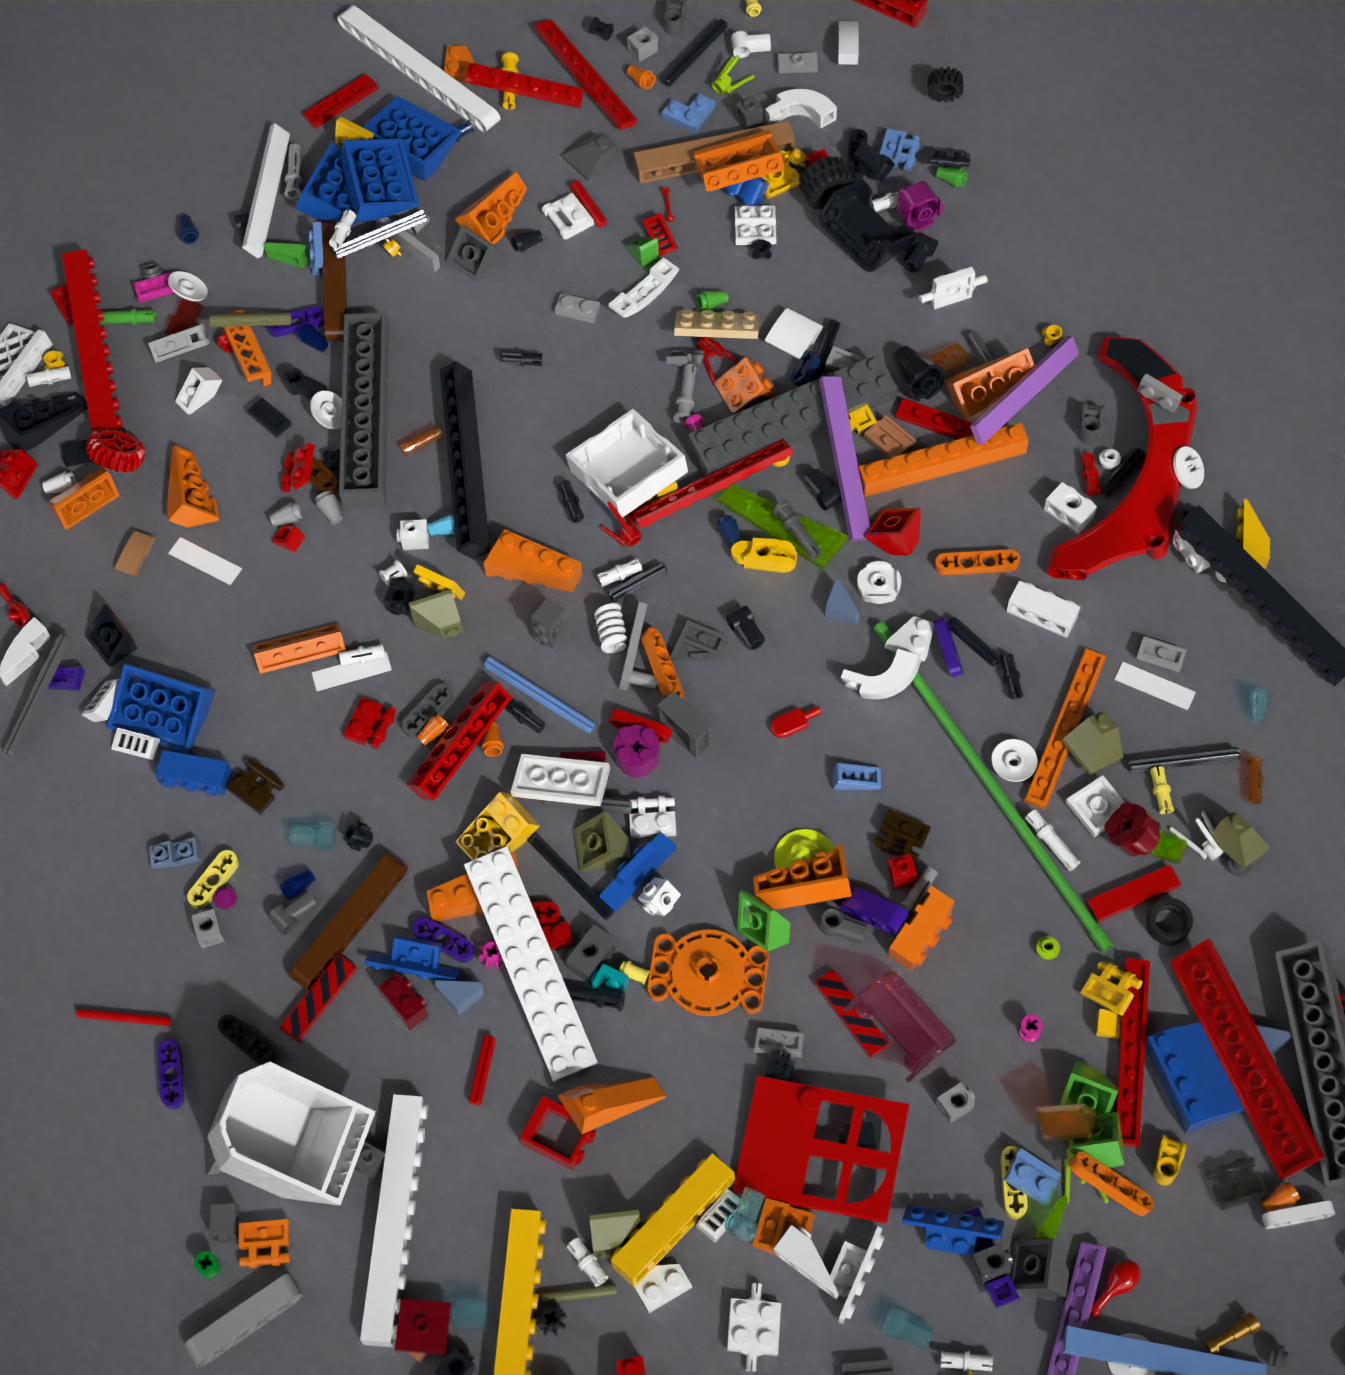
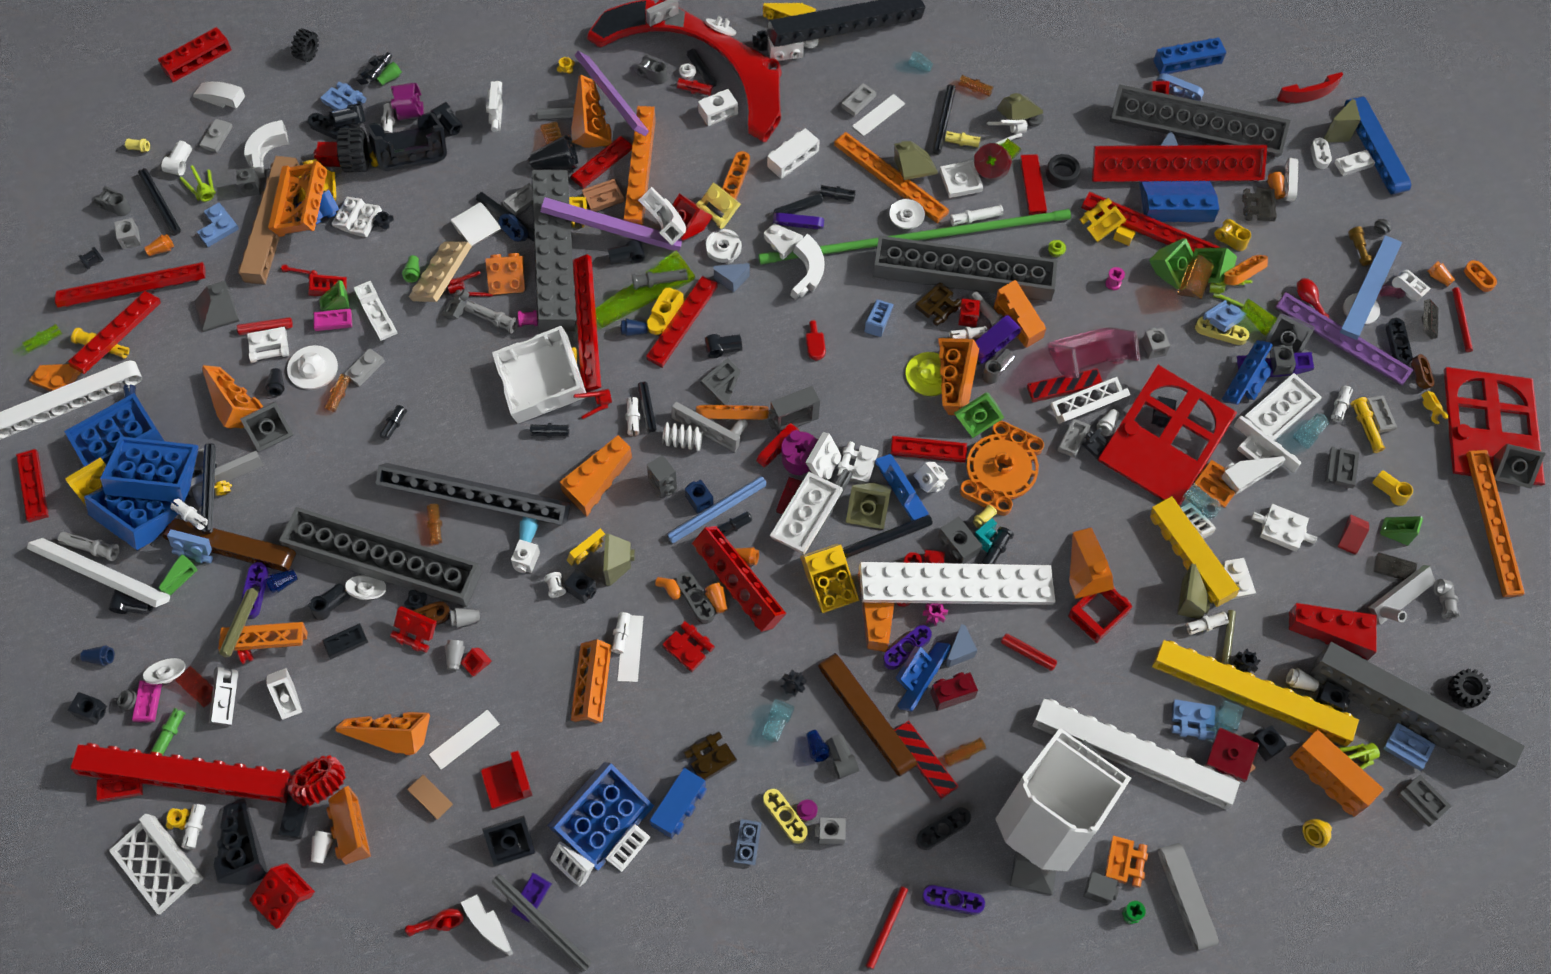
camera: 75 degrees left, 0 degrees up
(133, 245) = (80, 705): none -> black brick
(170, 613) = (506, 782): none -> red bracket
(338, 1035) = (964, 752): none -> clear orange pin
(429, 680) = (670, 585): none -> orange arm
(467, 1275) = (1194, 714): none -> medium blue plate
(497, 34) = (42, 338): none -> clear neon green pin
(536, 297) = (337, 393): none -> clear orange pin
(541, 677) = (698, 503): none -> dark blue brick
(560, 264) = (312, 367): none -> white hat
(619, 257) = (332, 319): none -> dark pink plate
(634, 775) = (824, 457): none -> white plate
(701, 886) = (928, 449): none -> red tile
(762, 577) = (682, 321): none -> red plate
(816, 1076) = (1108, 422): none -> white cone
(831, 1051) = (1091, 406): none -> white fence
(873, 880) = (968, 333): none -> white pin
(883, 508) = (669, 219): none -> white arch
(926, 1285) = (1283, 407): none -> white plate
(934, 559) = (721, 201): none -> light yellow plate
(962, 849) = (963, 267): none -> dark grey brick

